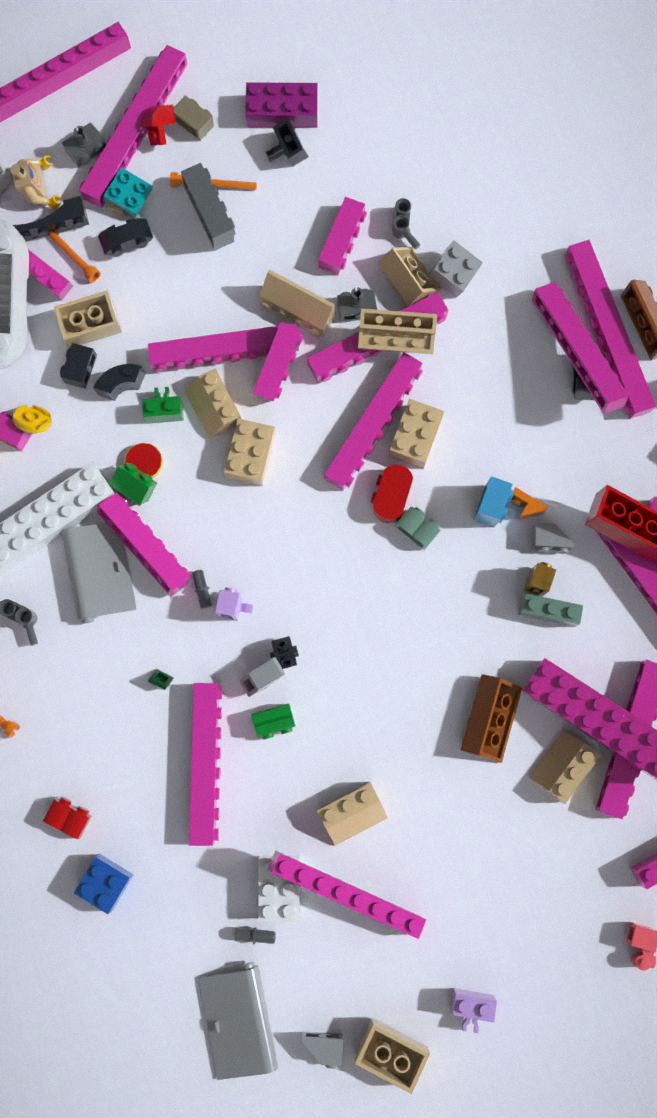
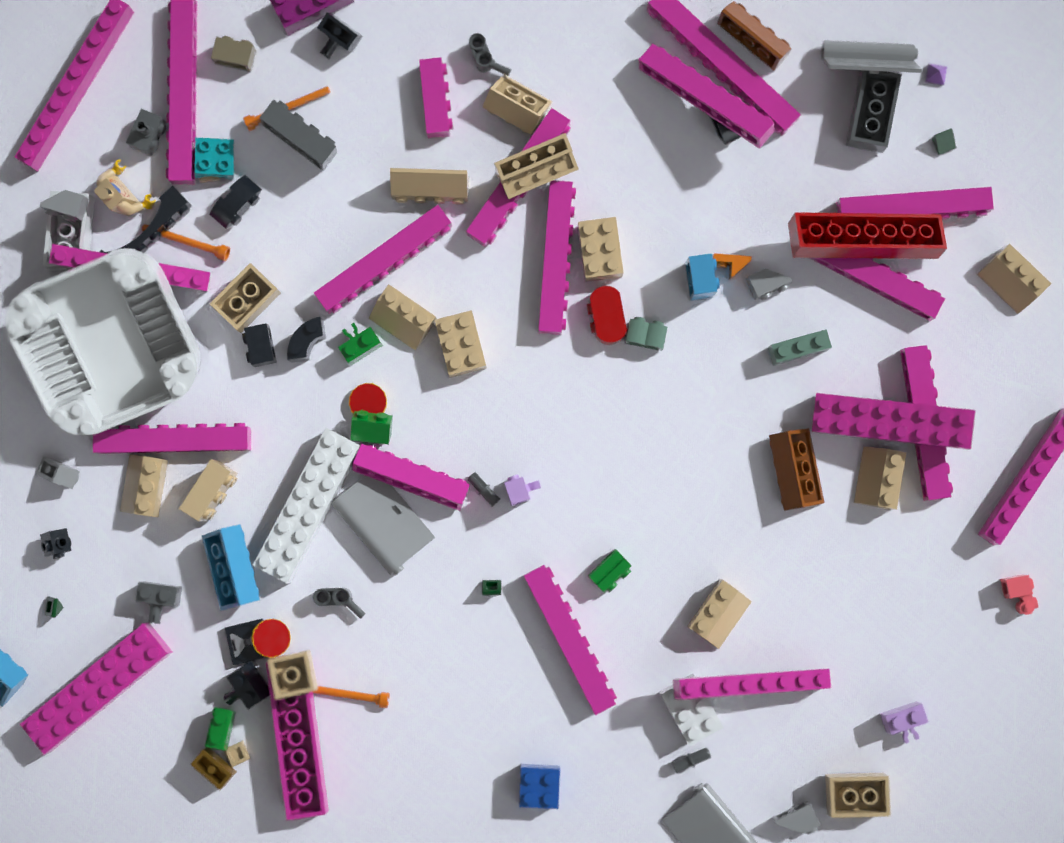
camera: 30 degrees left, 5 degrees up
(32, 419) = (246, 416): yellow tile -> none
(67, 817) = (476, 748): red brick -> none
(155, 119) = (202, 74): red brick -> none
(262, 677) = (580, 539): light grey slope -> none
(277, 361) = (441, 248): dark pink brick -> none
(284, 652) = (590, 510): black brick -> none
(350, 304) = (483, 157): dark grey brick -> none
(455, 268) = (556, 77): light grey brick -> none
(540, 579) = (777, 325): pearl gold brick -> none

